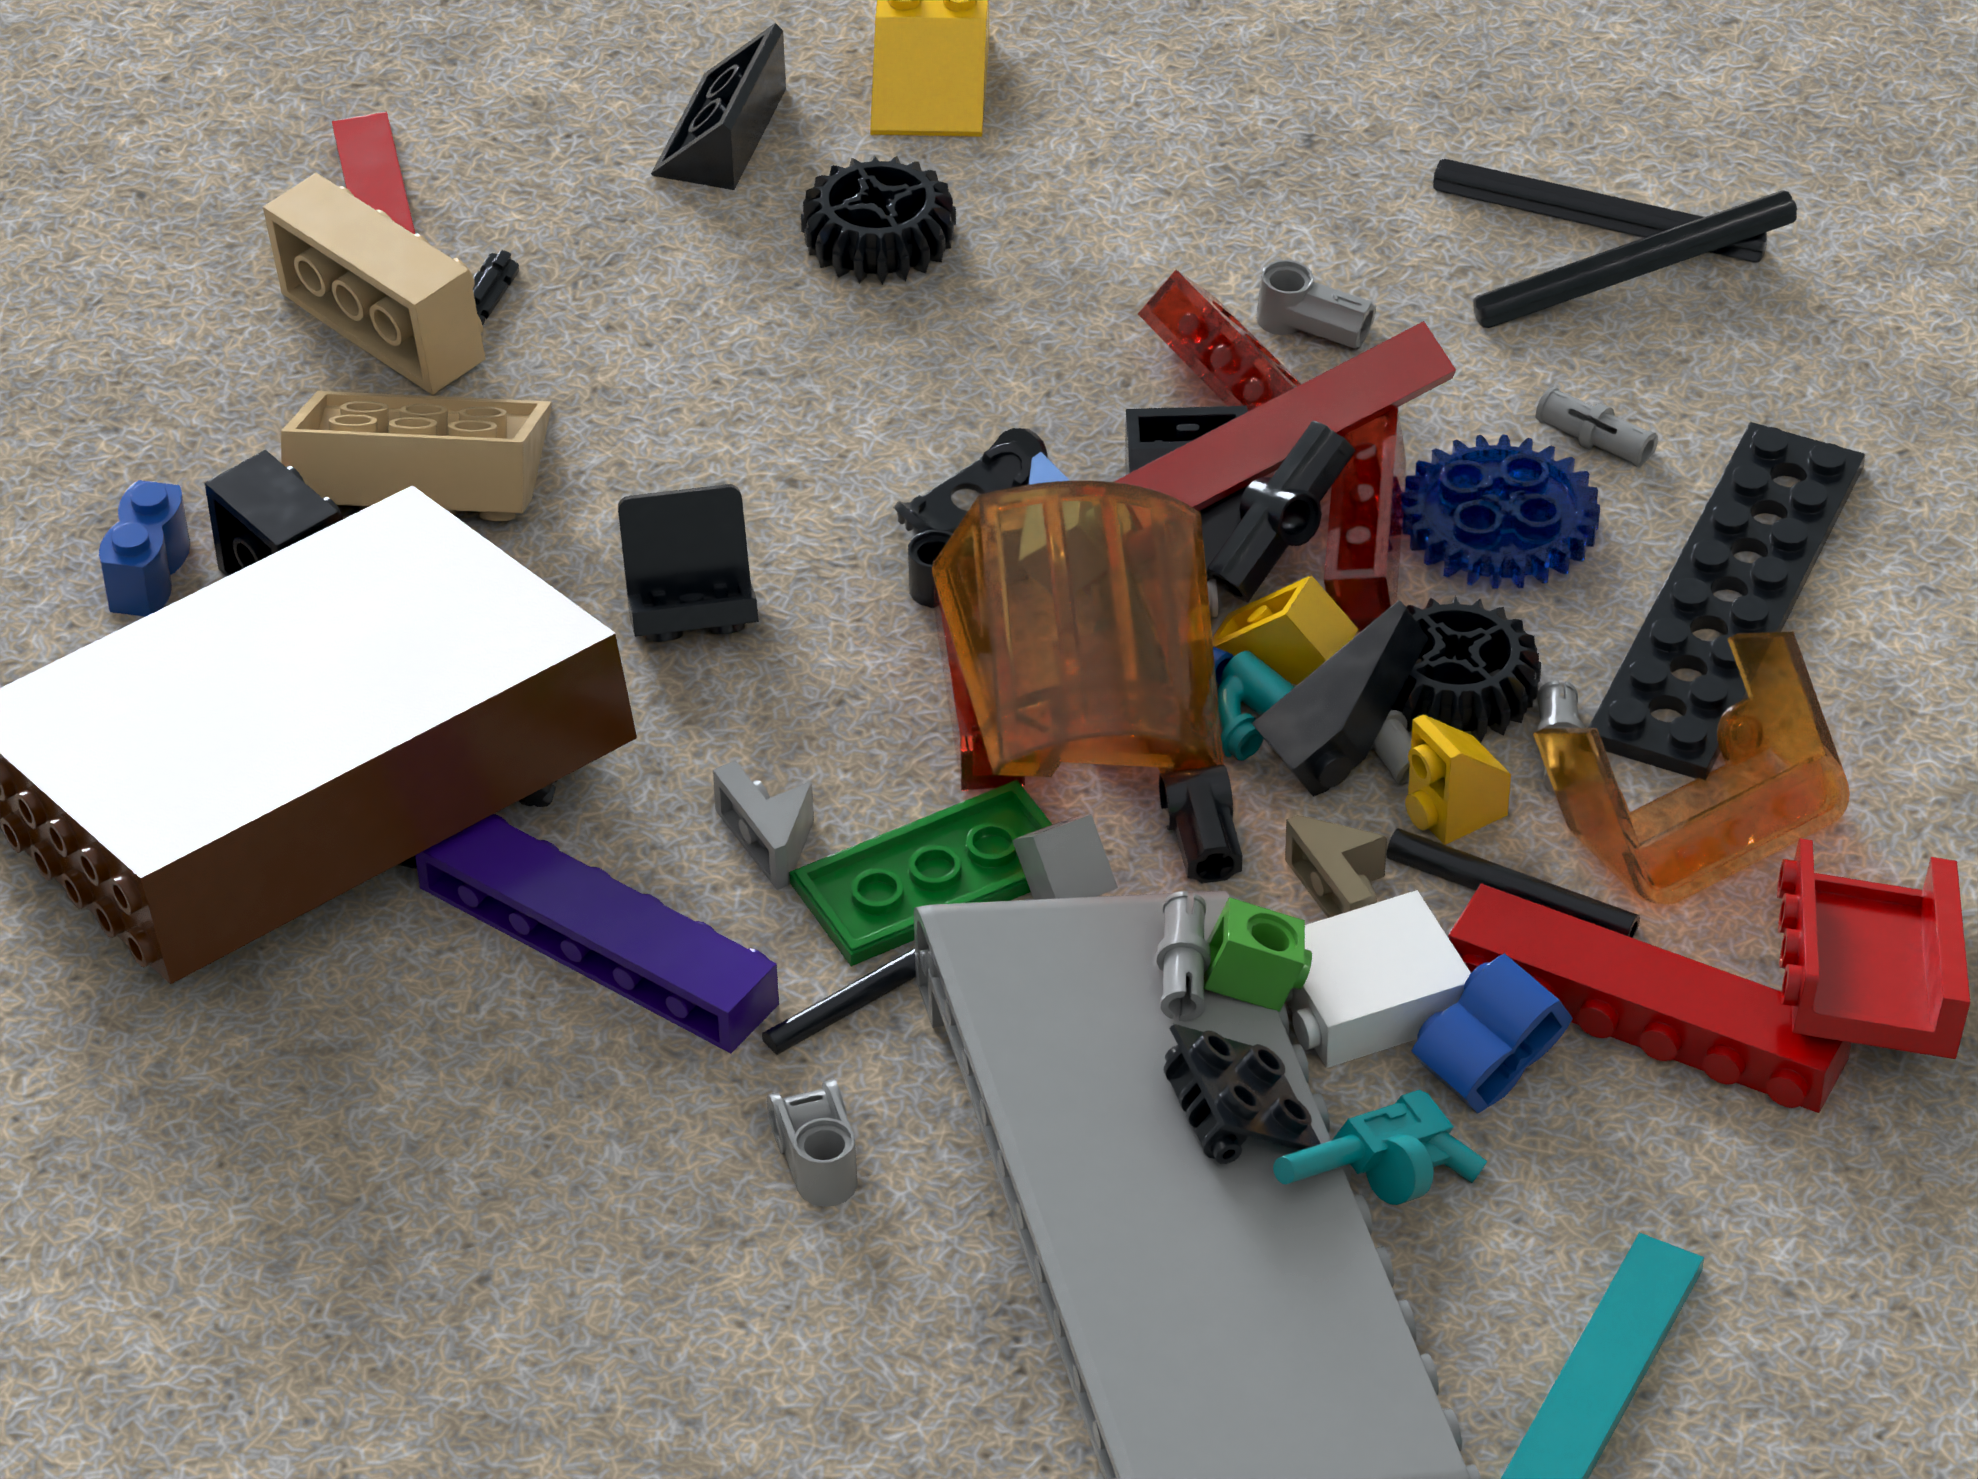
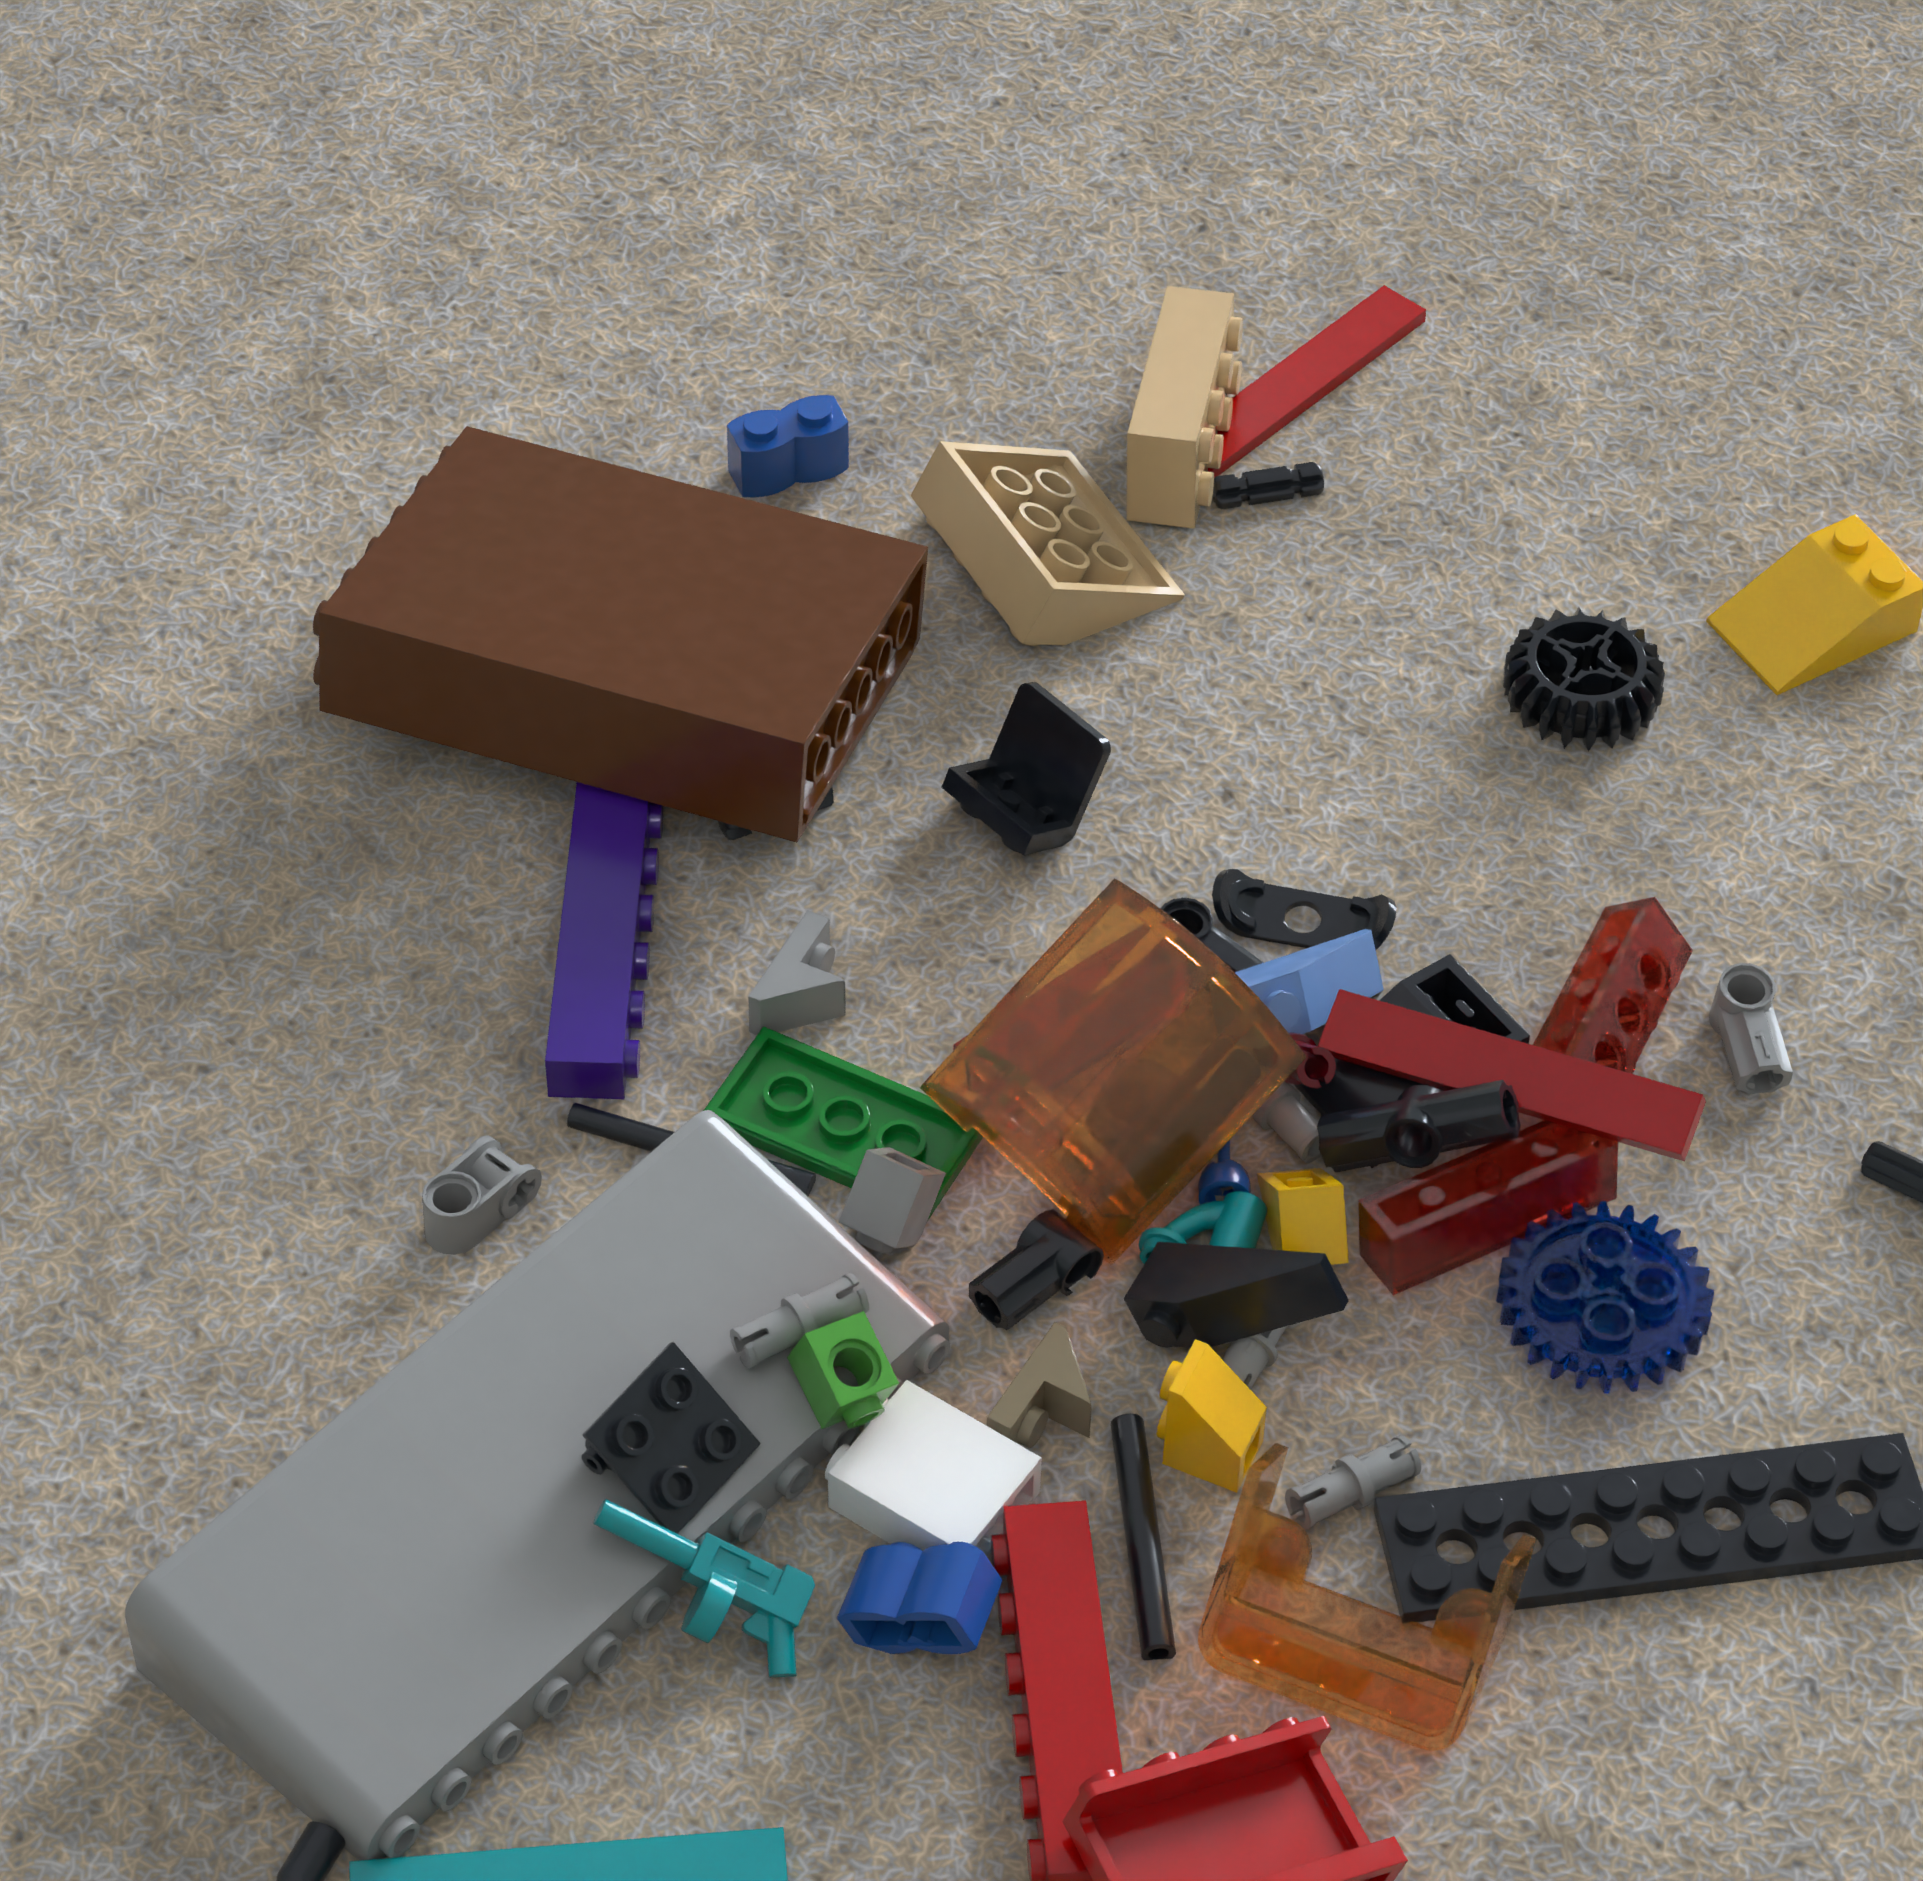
camera: 55 degrees right, 5 degrees up
(262, 510) = (852, 482): black brick -> none
(727, 115) = (1623, 520): black slope -> none
(1455, 668) = (1393, 1383): black gear -> none
(1596, 426) = (1792, 1317): light grey pin -> none

